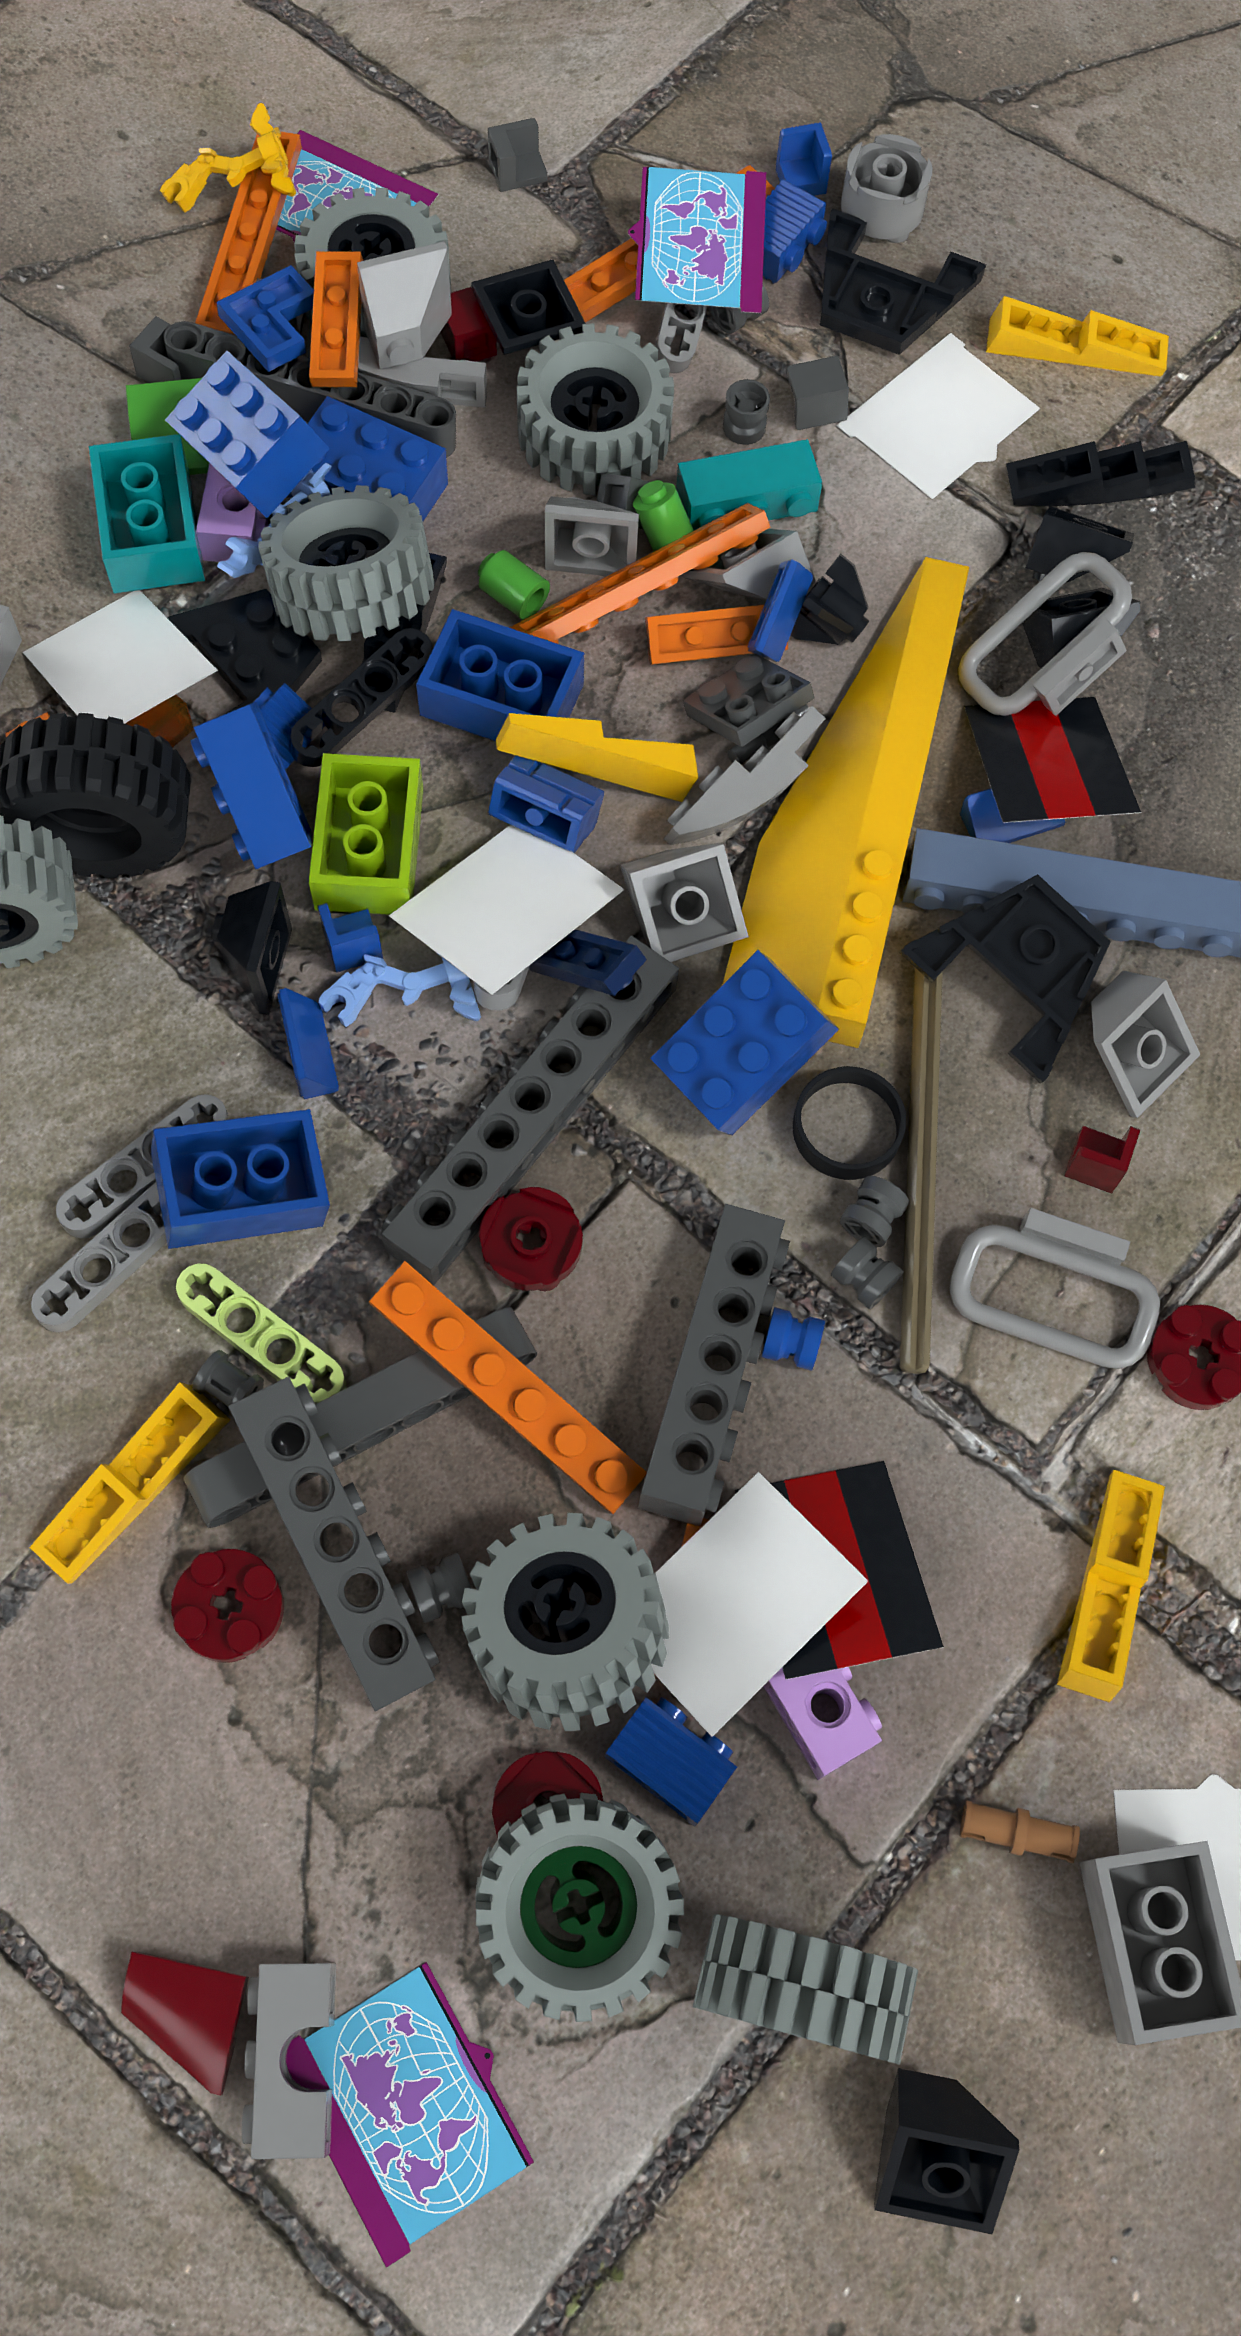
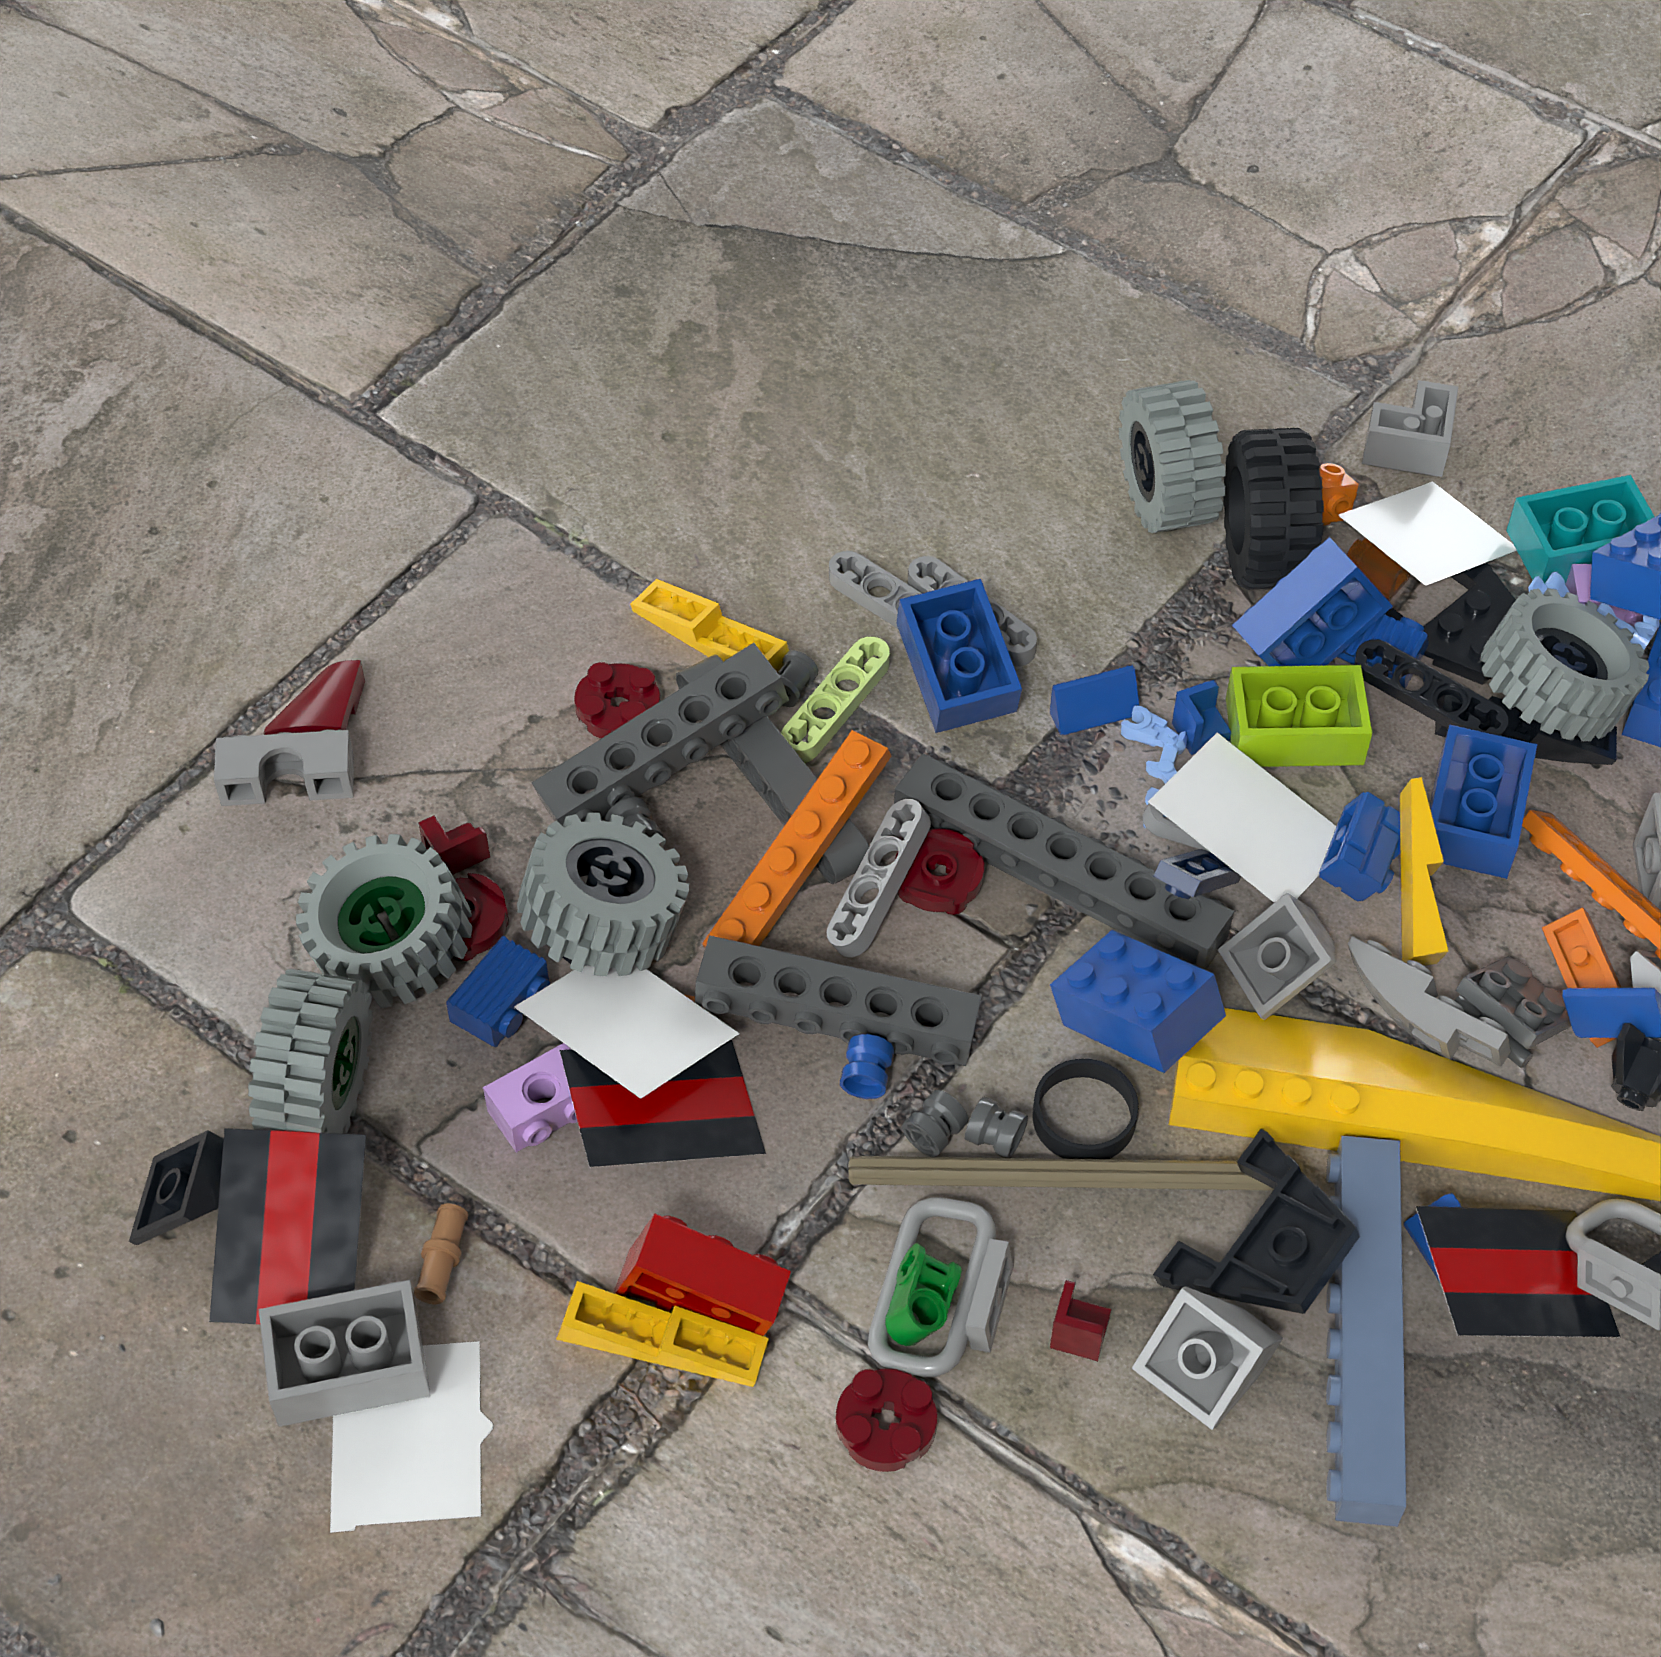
camera: 90 degrees right, 15 degrees down
(255, 940) = (1171, 652): black slope -> none
(410, 2111) = (247, 851): sticker -> none
(438, 1820) = (458, 847): none -> dark red panel
(513, 584) = (1597, 809): bright green brick -> none
(541, 1309) = (885, 878): none -> light grey beam
(1005, 2019) = (285, 1220): none -> black sticker
(1064, 1536) = (702, 1275): none -> red wedge
(1082, 1305) = (927, 1290): none -> green piece

